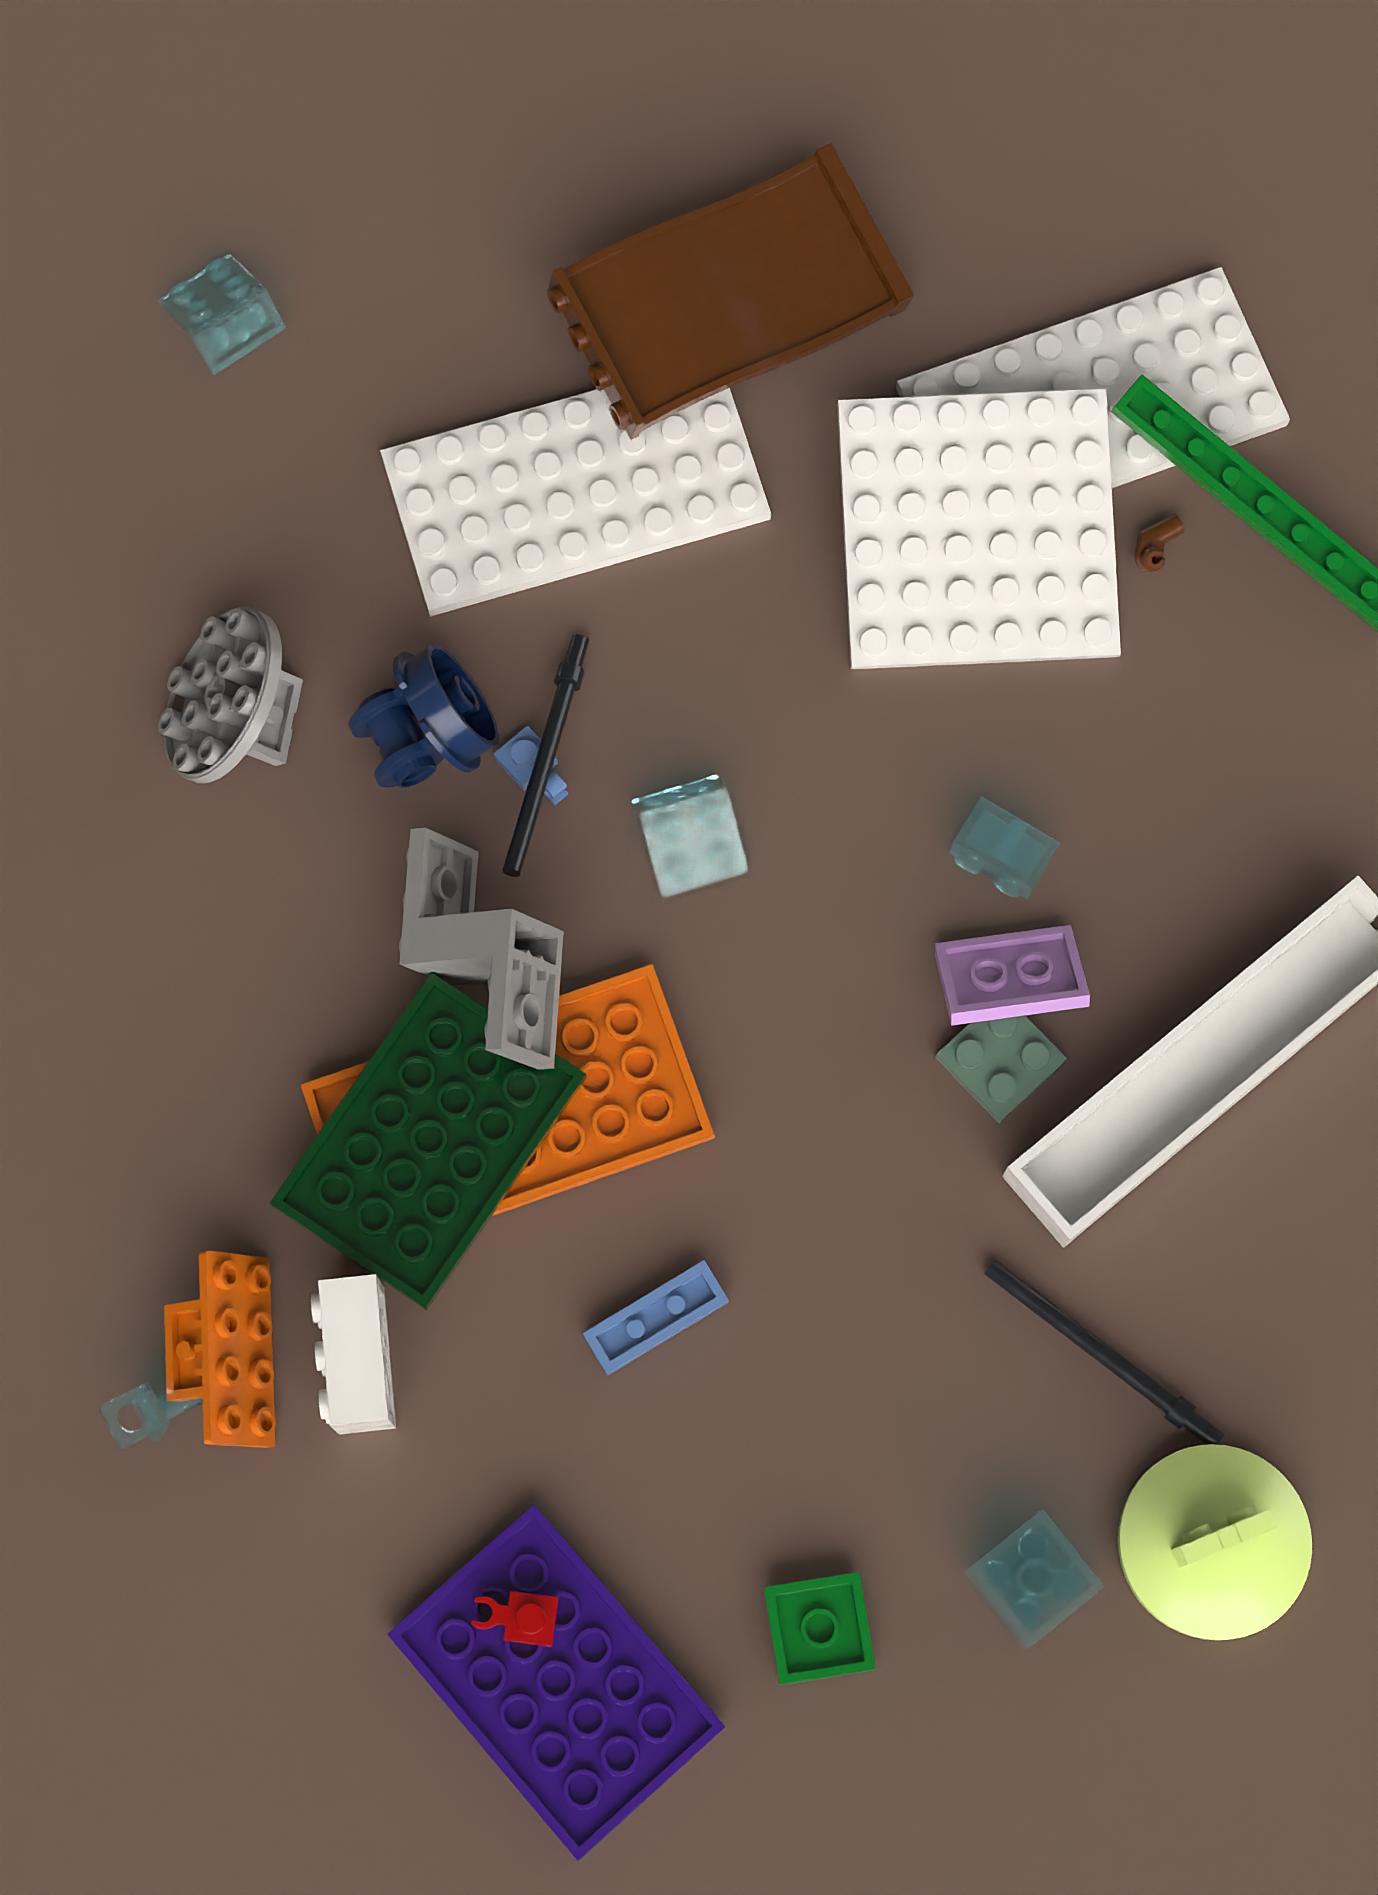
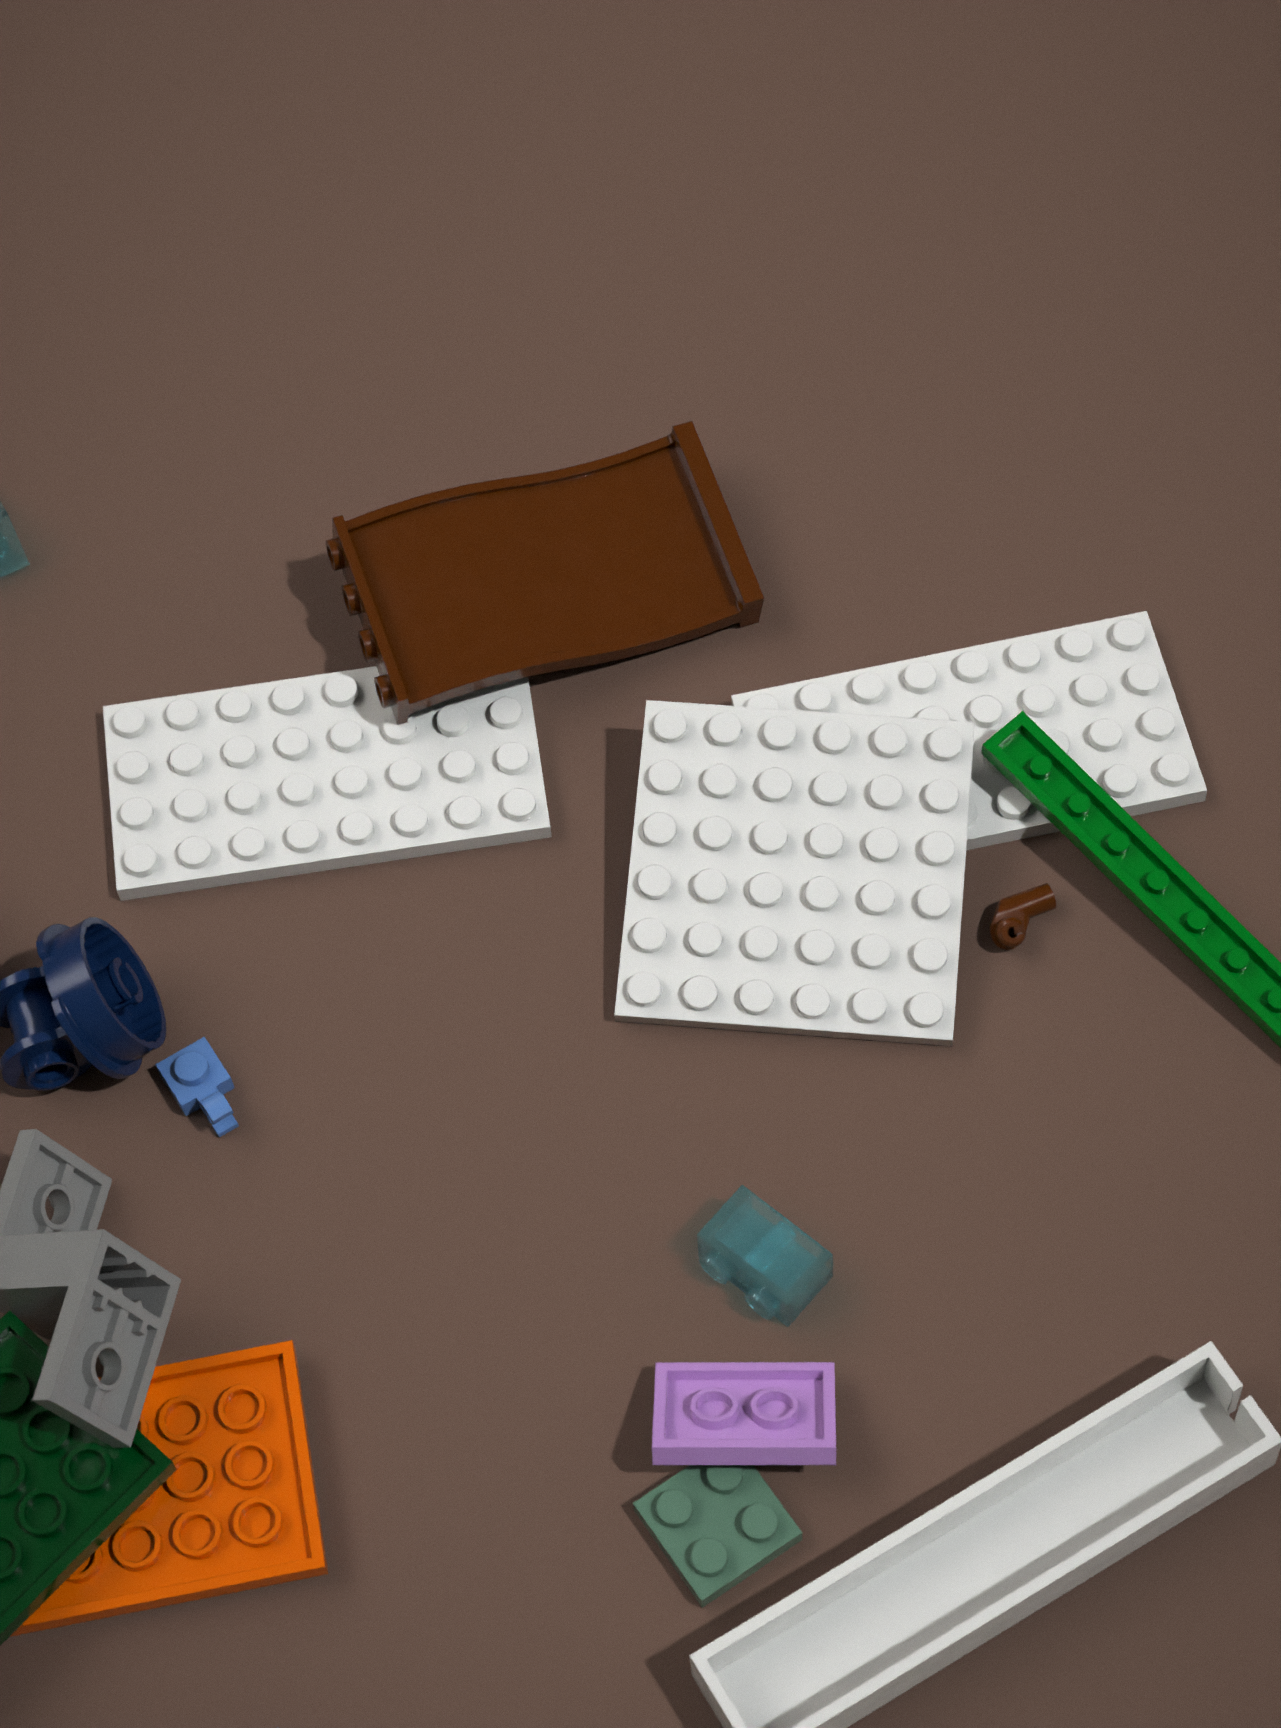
camera: 15 degrees right, 15 degrees down
(568, 680) = (263, 991): black bar -> none
(691, 835) = (374, 1194): clear light blue bracket -> none

